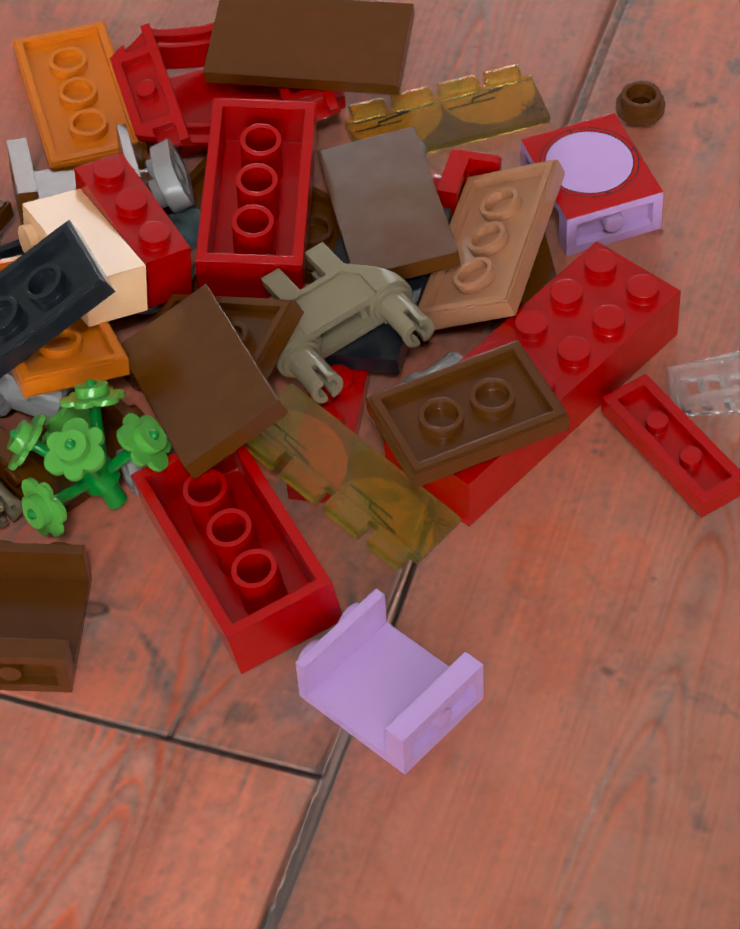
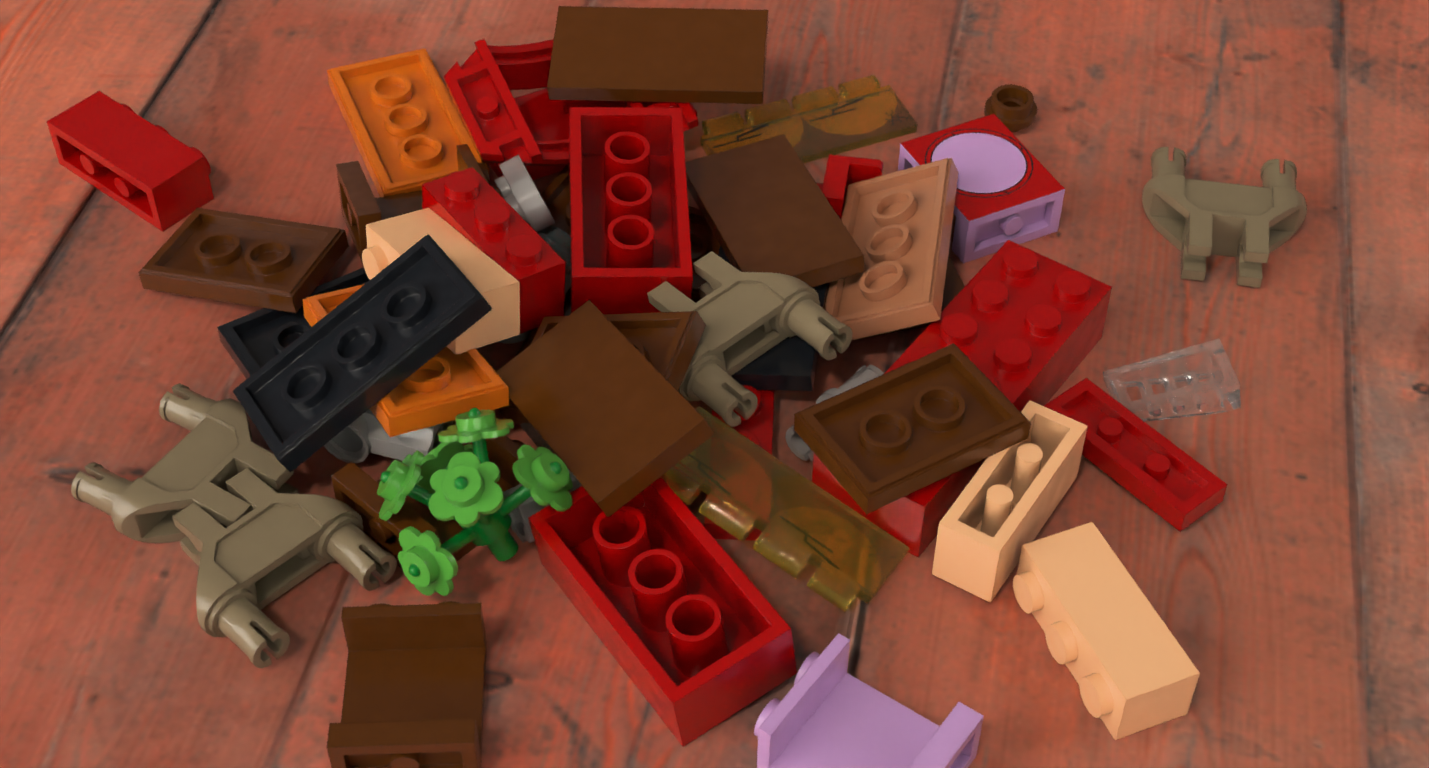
camera: 10 degrees left, 5 degrees down
(548, 483) = (1008, 503): none -> light nougat brick
(608, 599) = (1104, 631): none -> light nougat brick

